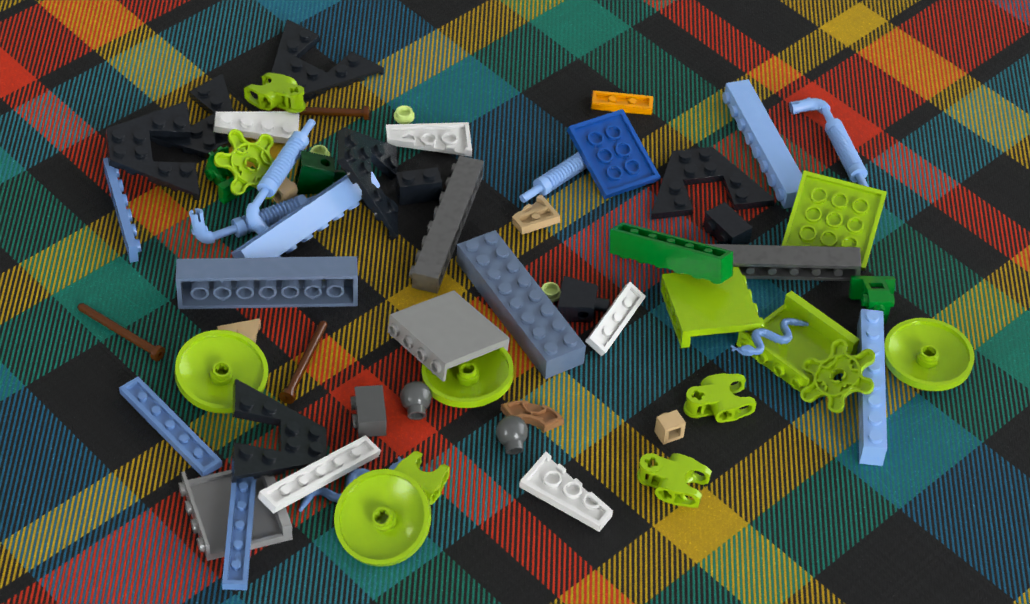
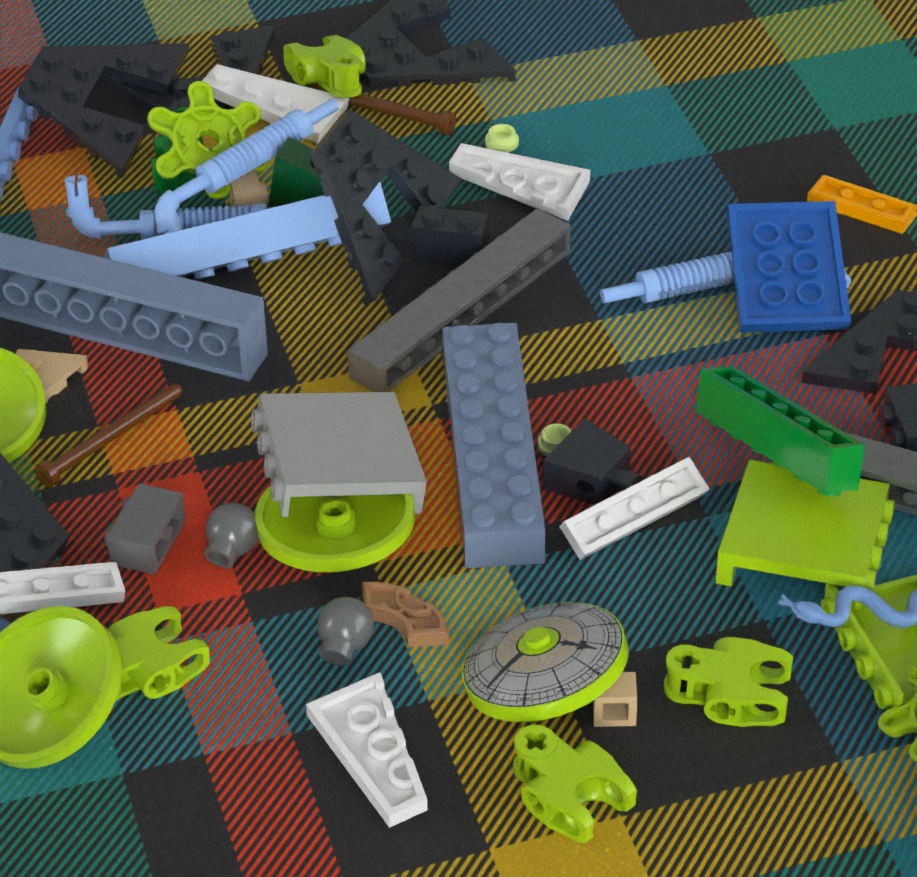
camera: 30 degrees right, 5 degrees down
(535, 216) = (606, 328): tan wing -> none
(626, 418) = (545, 662): none -> dish

